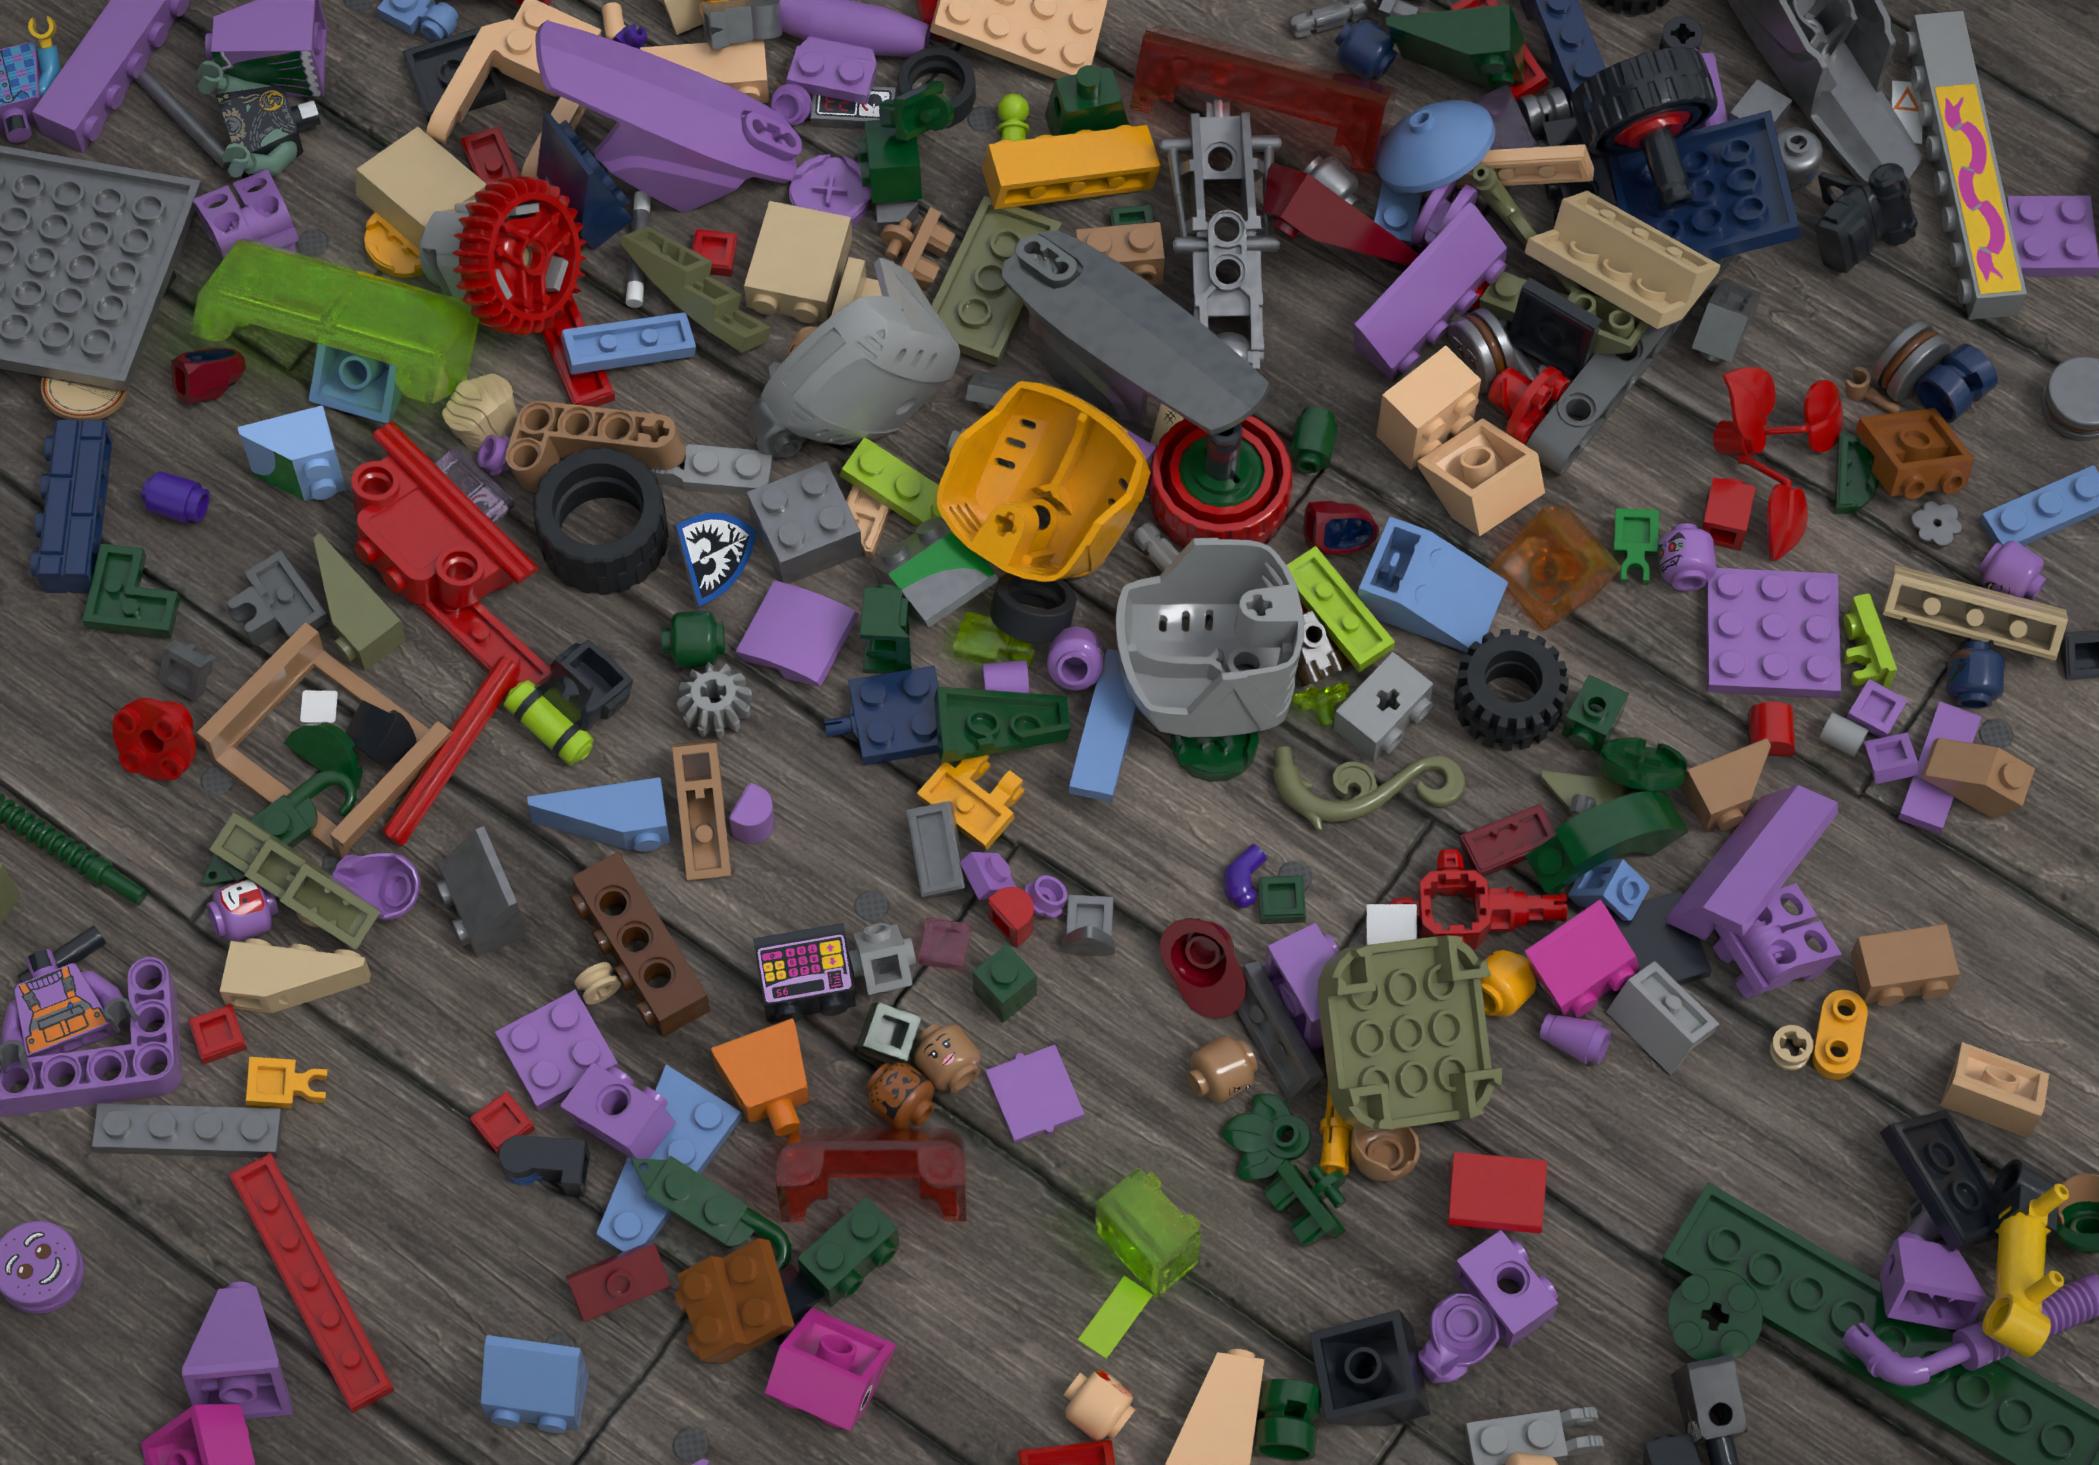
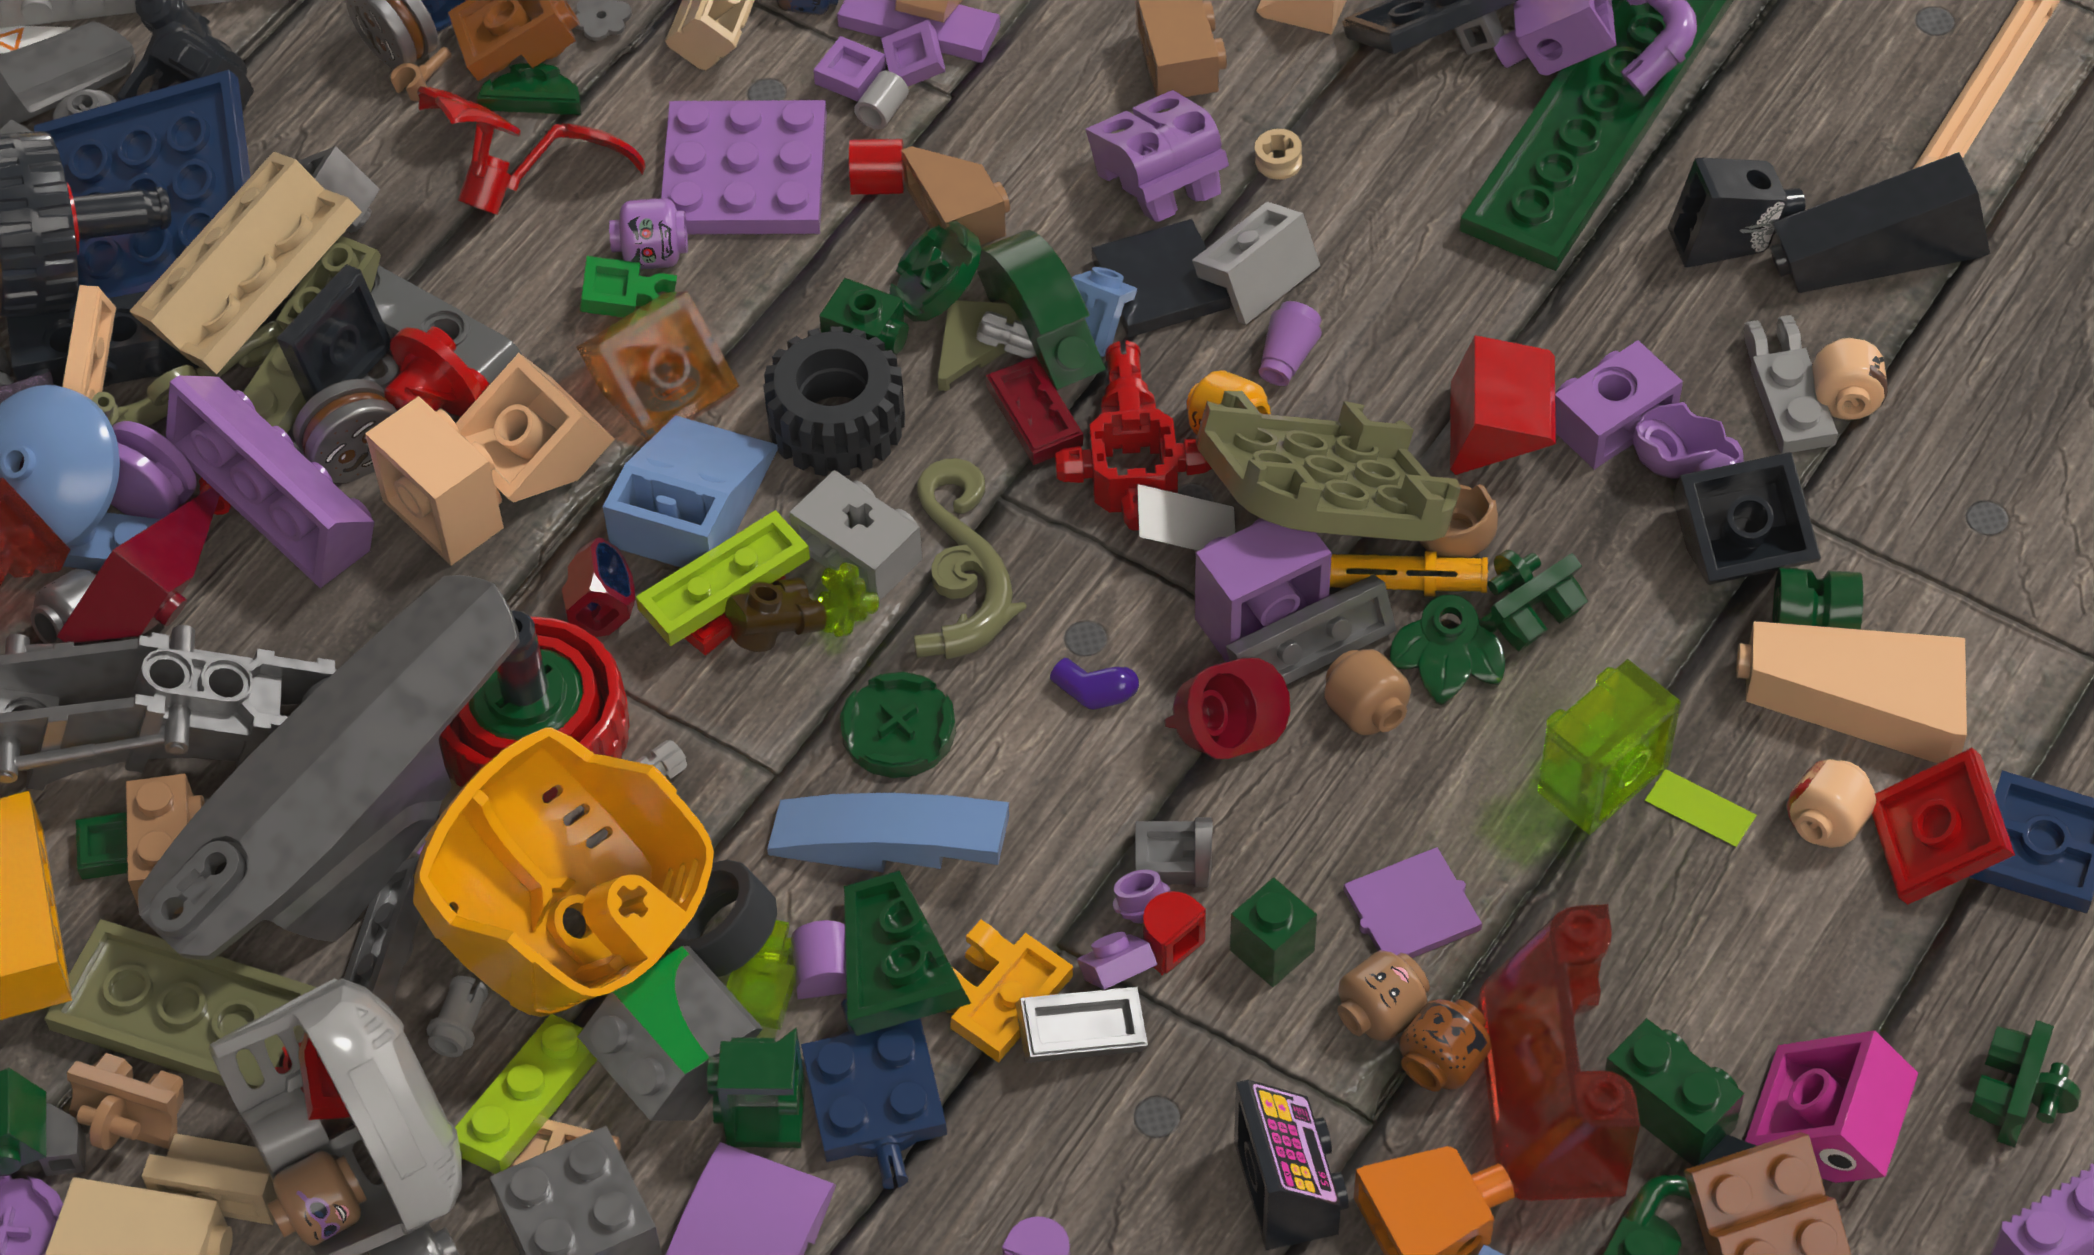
camera: 90 degrees left, 10 degrees down
(882, 958) = (1252, 1054): light grey brick -> none
(888, 1032) = (1361, 1057): brick -> none
(945, 944) = (1211, 1018): clear pink tile -> none
(1075, 658) = (797, 867): medium lavender head -> none
(1191, 678) = (788, 743): light grey piece -> none
(1281, 899) = (1123, 643): dark green tile -> none
(1582, 961) = (1202, 318): dark pink slope -> none
(1699, 1294) = (1638, 190): dark green plate -> none
(1728, 511) = (585, 197): red brick -> none
(1754, 862) = (1069, 160): medium lavender slope -> none
(1841, 1032) = (1254, 109): light orange plate -> none
(1872, 647) = (764, 69): lime plate -> none

